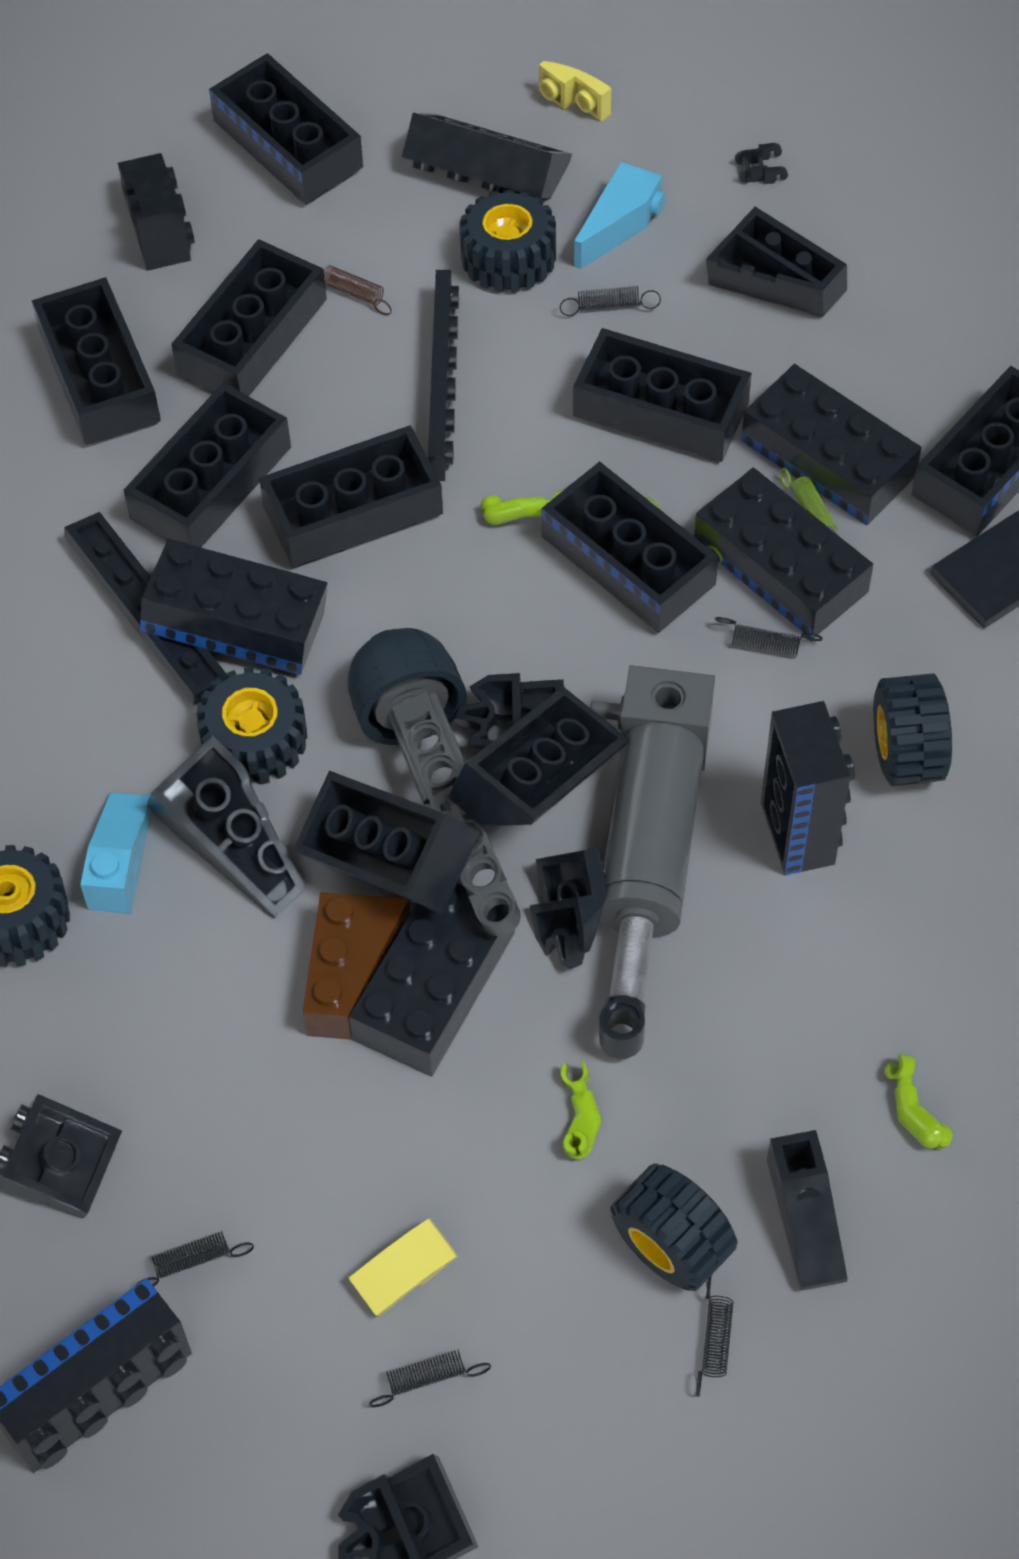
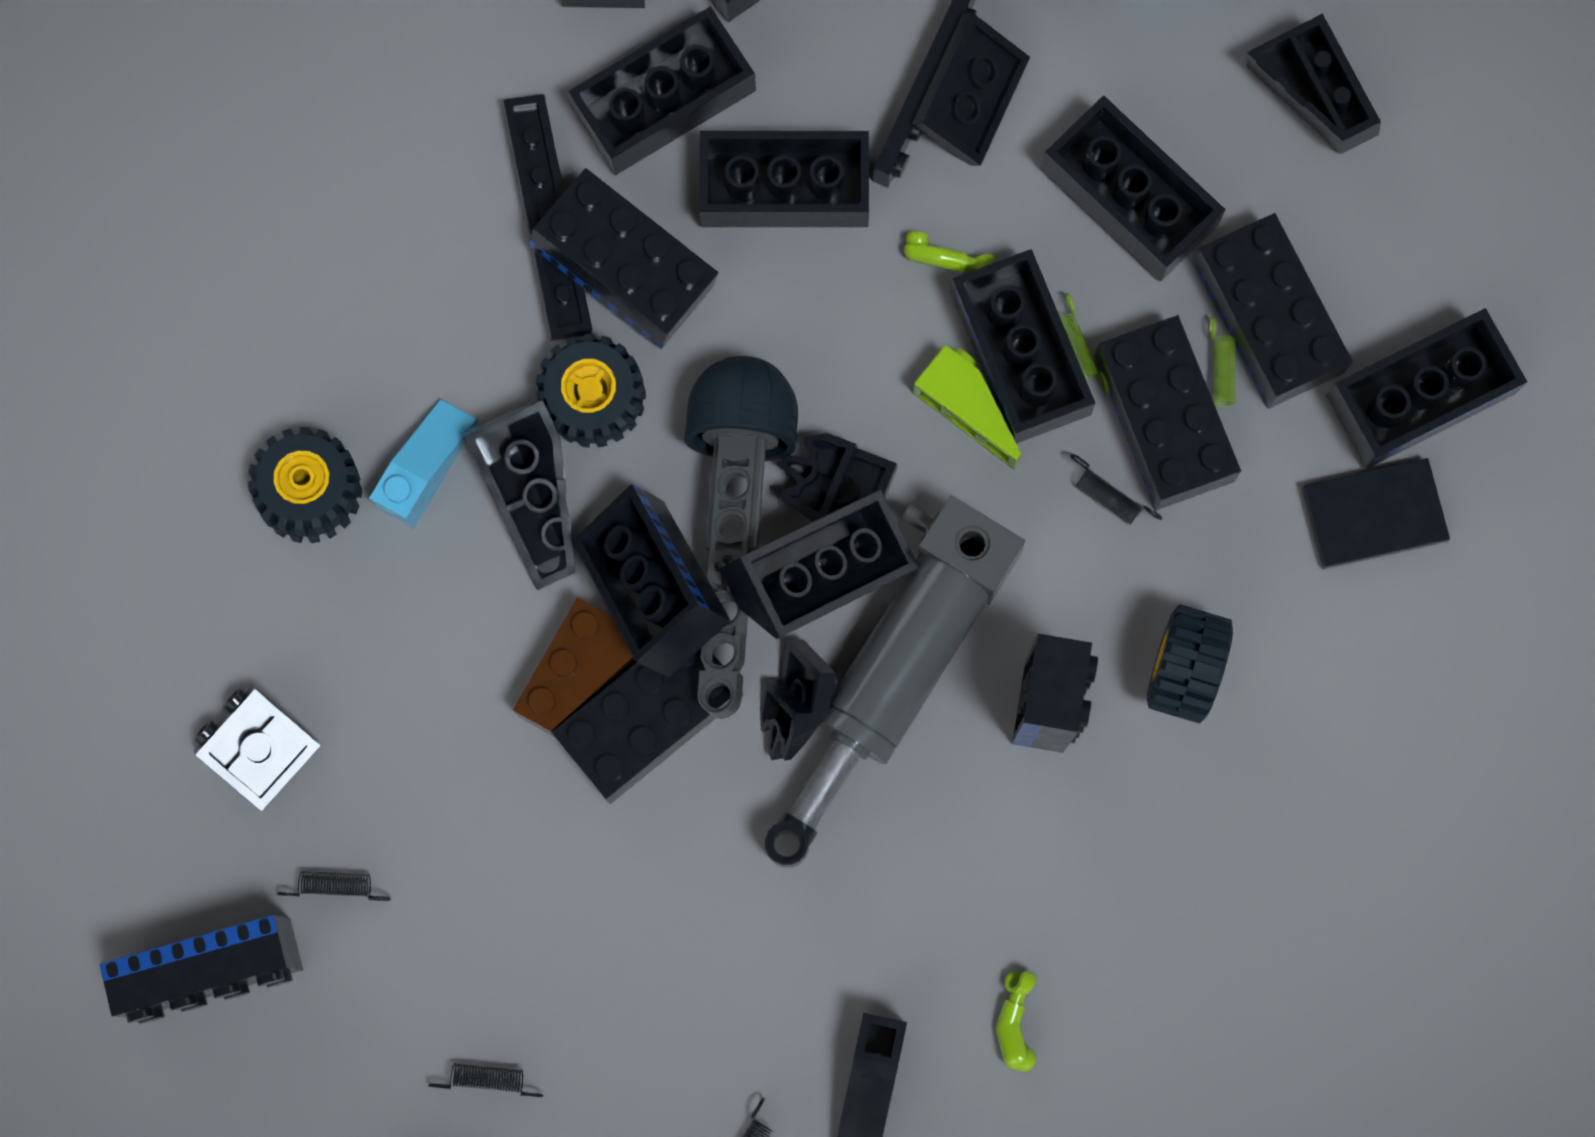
camera: 25 degrees right, 20 degrees up
(403, 1267) = (506, 978): light yellow slope -> none
(483, 372) = (971, 89): none -> black plate
(587, 1119) = (724, 907): lime arm -> none
(600, 610) = (962, 397): none -> lime slope
(608, 305) = (1141, 44): black piece -> none
(674, 1227) = (743, 1054): black wheel -> none

